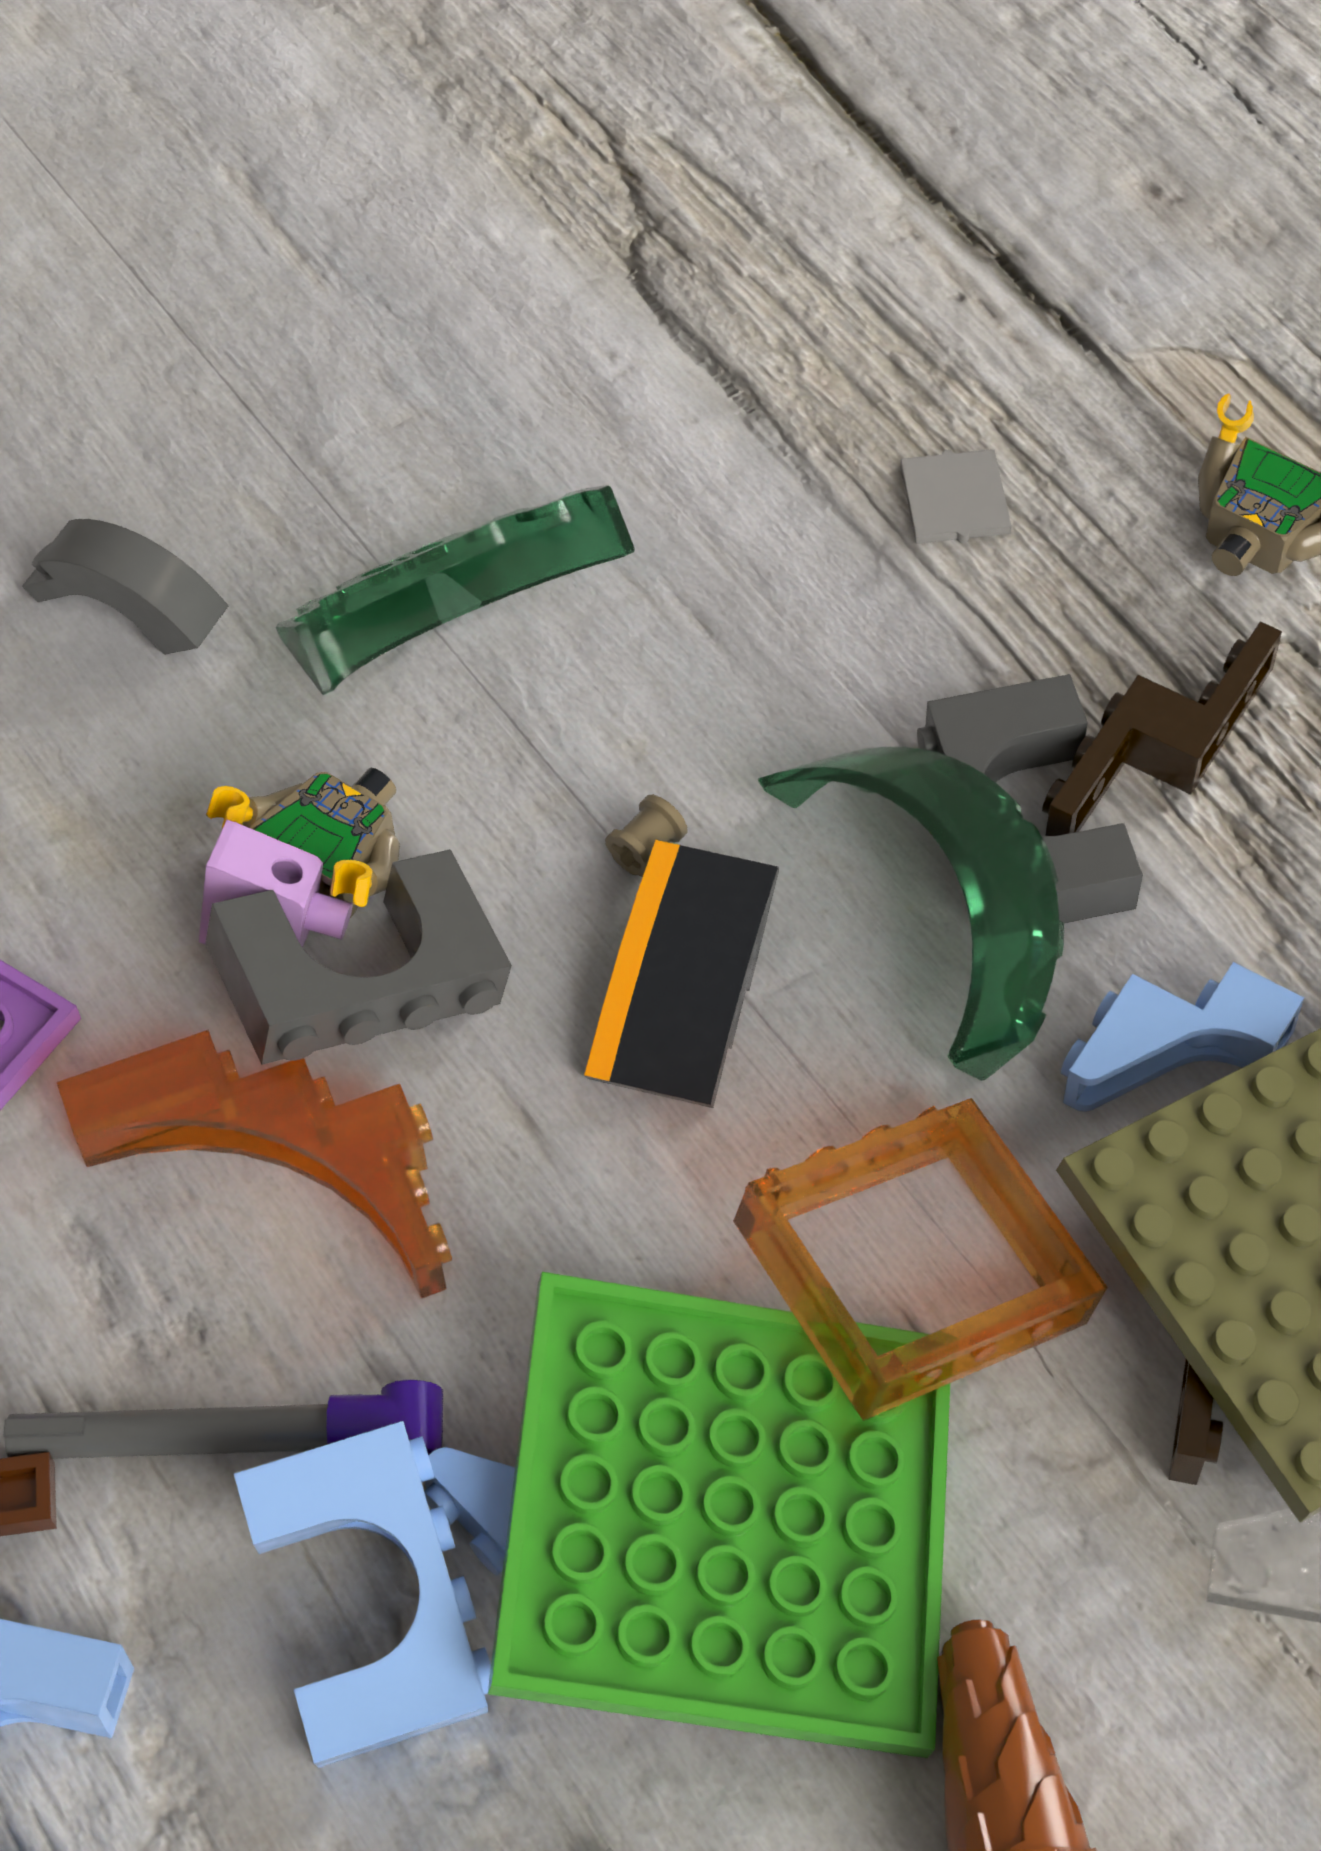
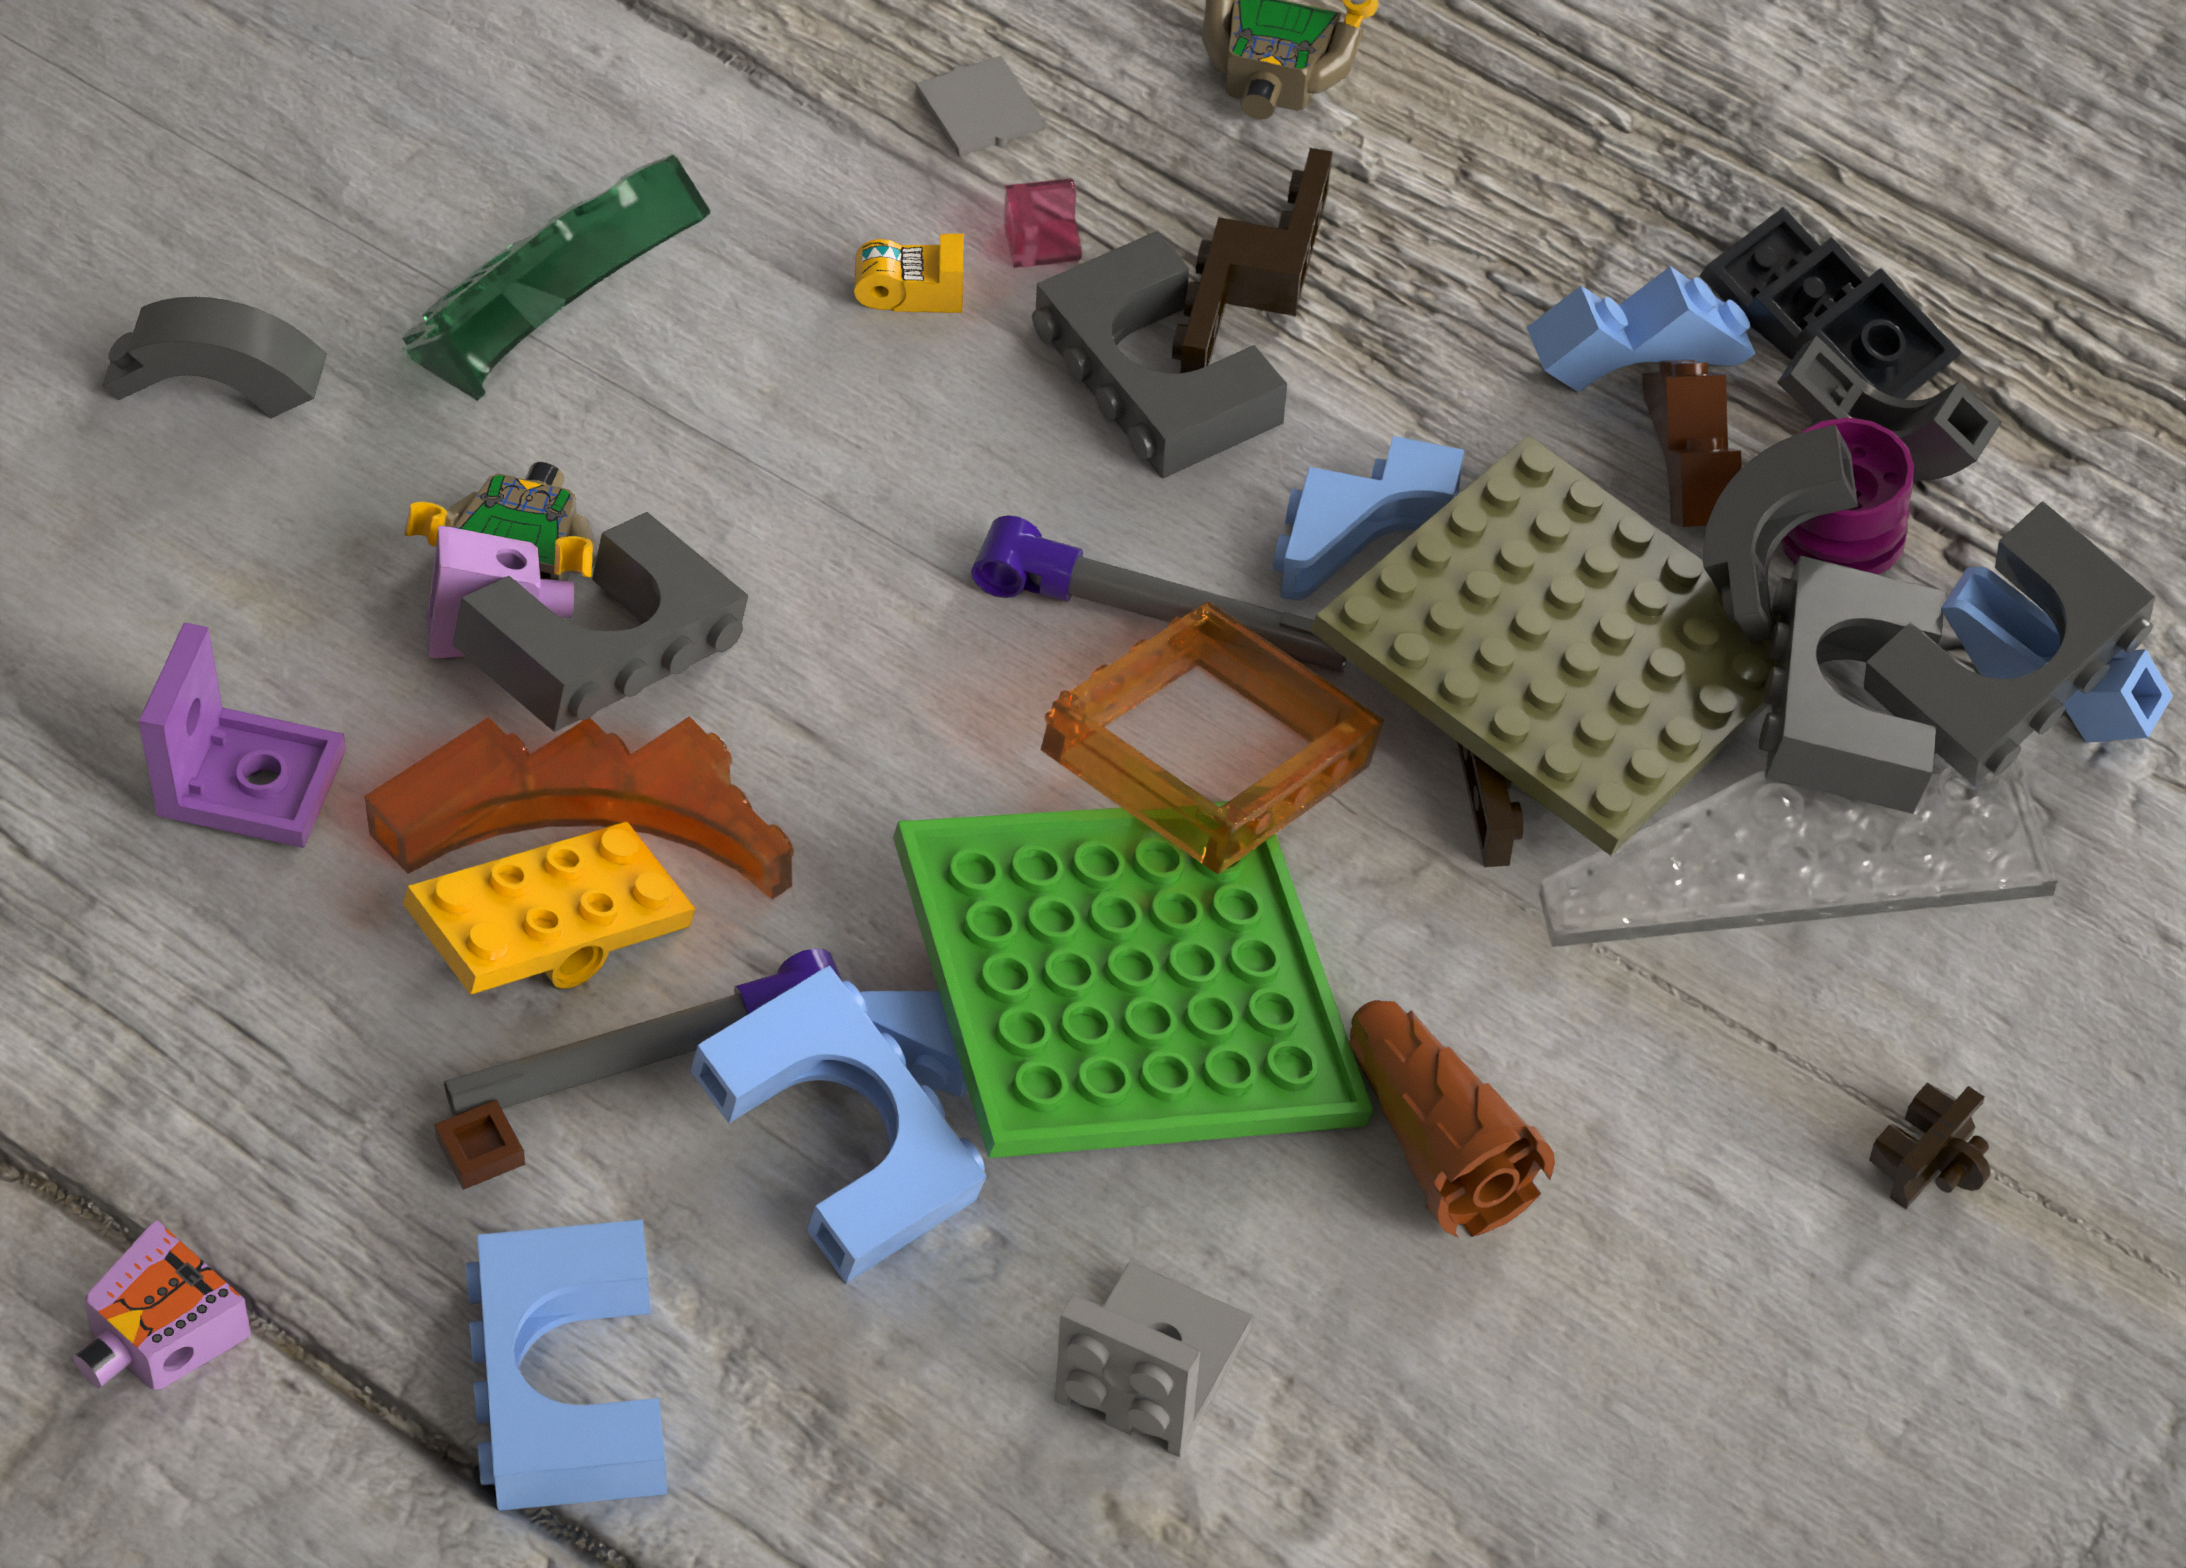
camera: 25 degrees left, 5 degrees down
(183, 1256) = (549, 909): none -> yellow plate
(634, 843) = (814, 470): dark tan bush -> none
(682, 973) = (902, 569): black slope -> none
(805, 993) = (1019, 559): none -> piece
(816, 659) = (911, 275): none -> yellow leg
(966, 635) = (1042, 223): none -> clear pink panel
(1002, 874) = (1162, 396): clear green windscreen -> none

